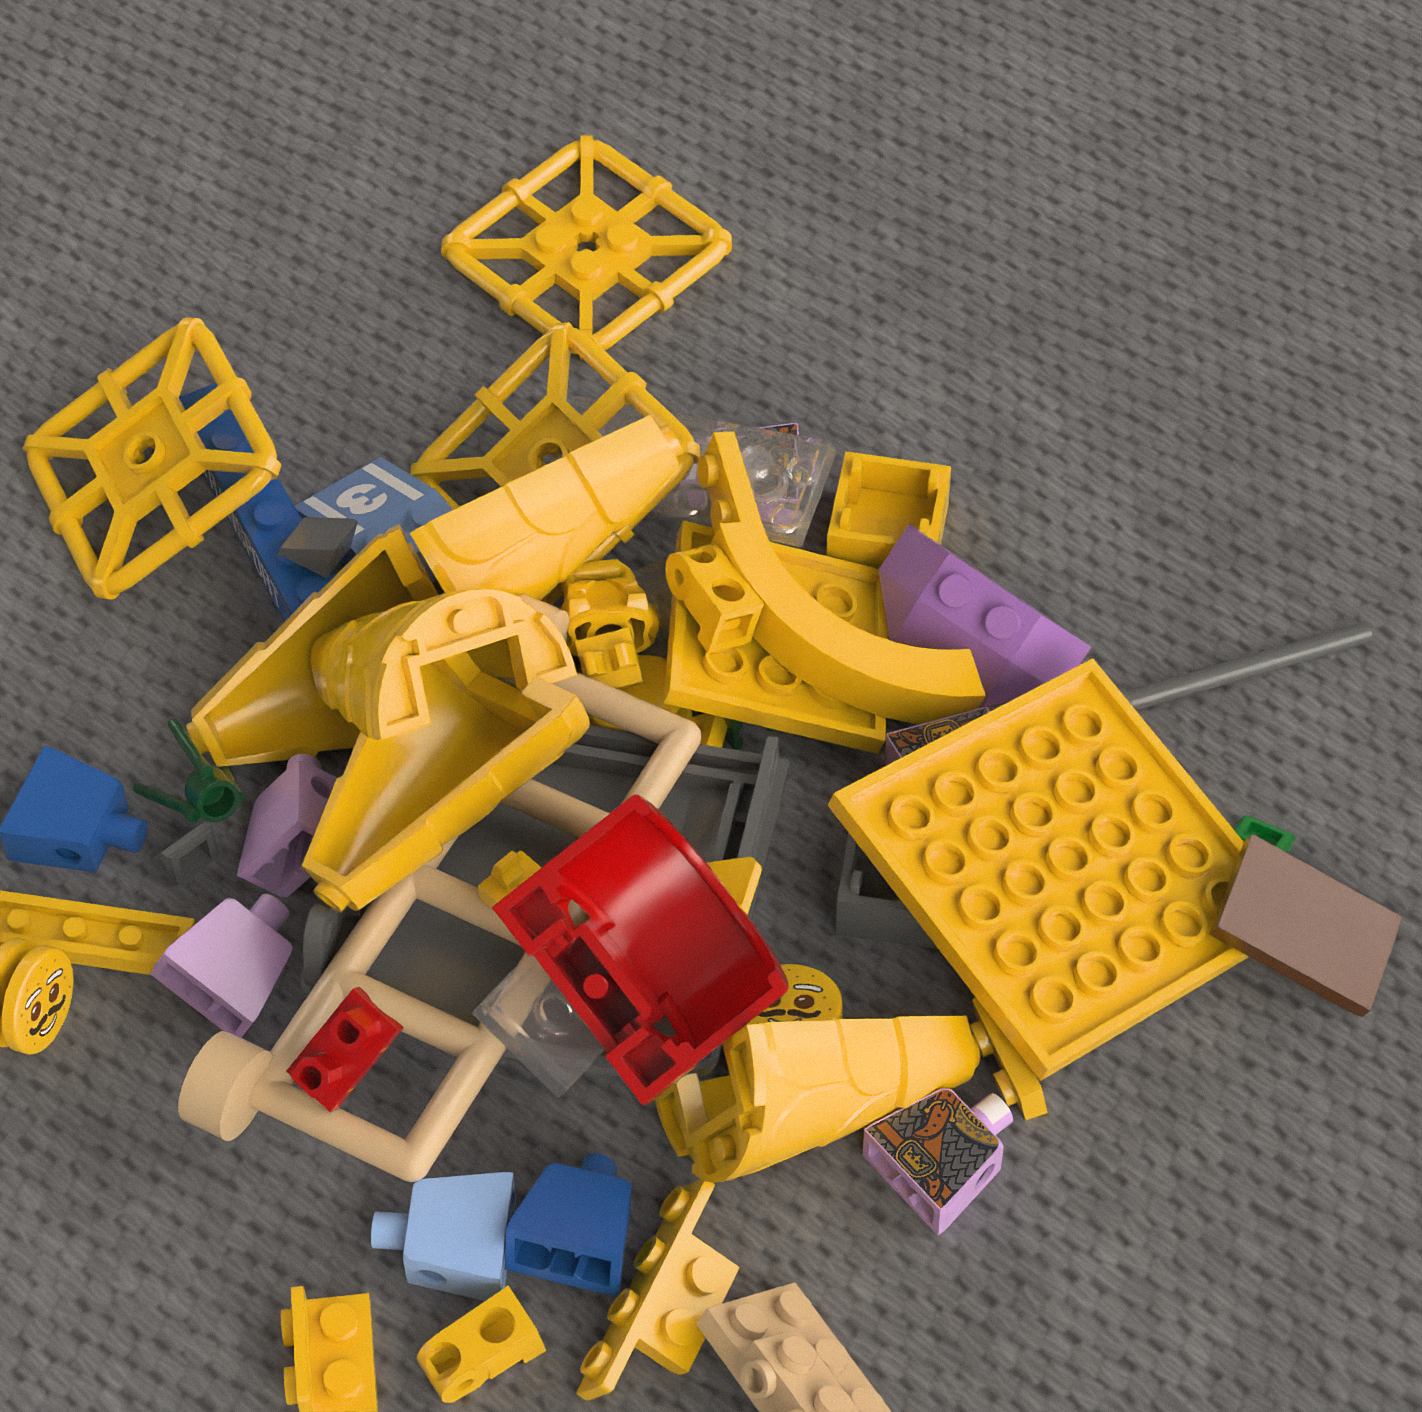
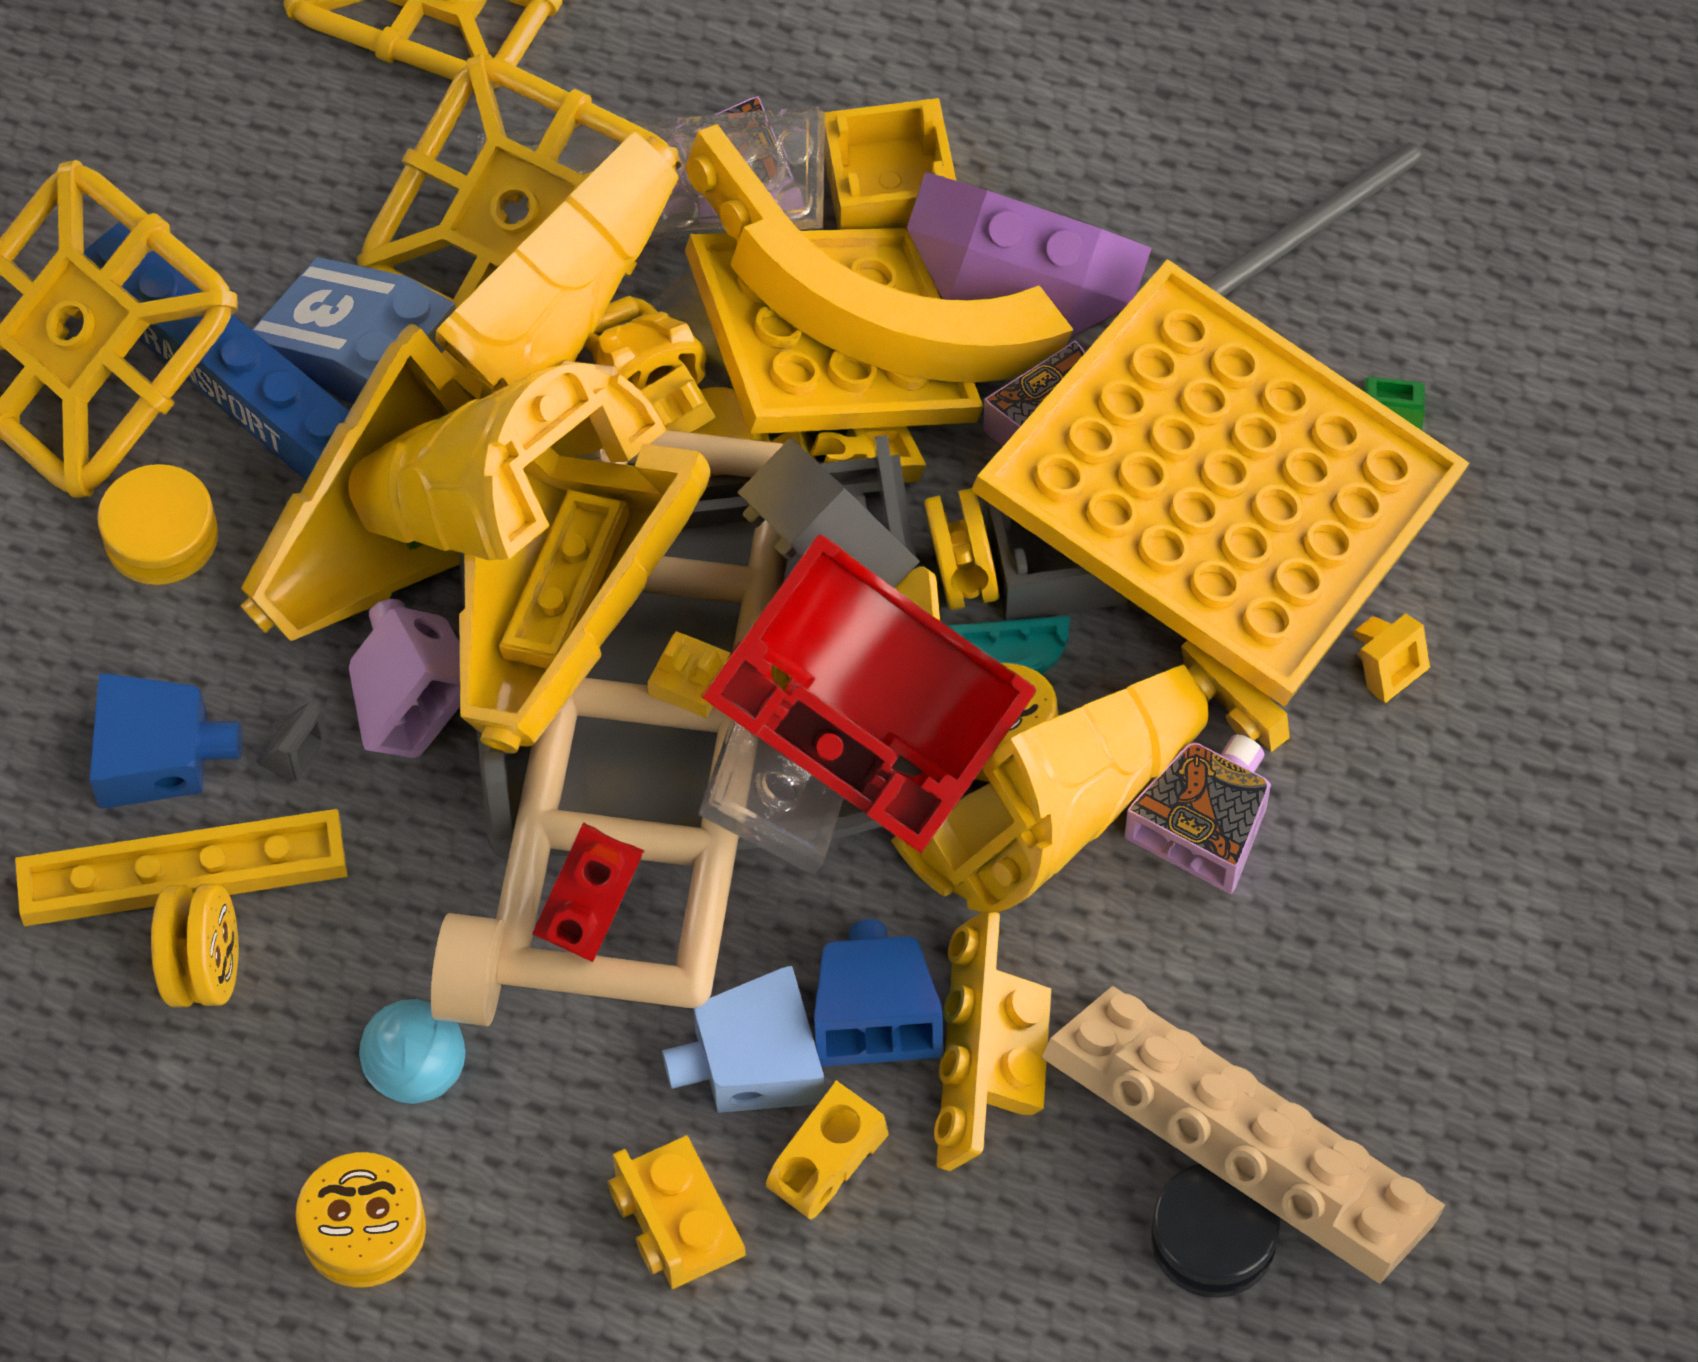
camera: 20 degrees left, 5 degrees up
(63, 1275) = (360, 1219): none -> yellow head
(153, 638) = (157, 524): none -> yellow head
(166, 1150) = (411, 1053): none -> medium azure piece
(208, 789) = (298, 665): dark green plant -> none
(228, 962) = (400, 844): lavender torso -> none
(319, 543) = (311, 368): dark grey slope -> none
(444, 766) = (564, 577): none -> yellow tile
(685, 786) = (809, 502): none -> dark grey container
(714, 596) = (762, 304): yellow leg -> none
(797, 748) = (861, 445): none -> yellow plate
(812, 858) = (962, 551): none -> yellow head
(841, 957) = (1023, 642): none -> teal tile
(1165, 1066) = (1392, 654): none -> yellow tile
(1306, 926) = (1475, 471): tile -> none

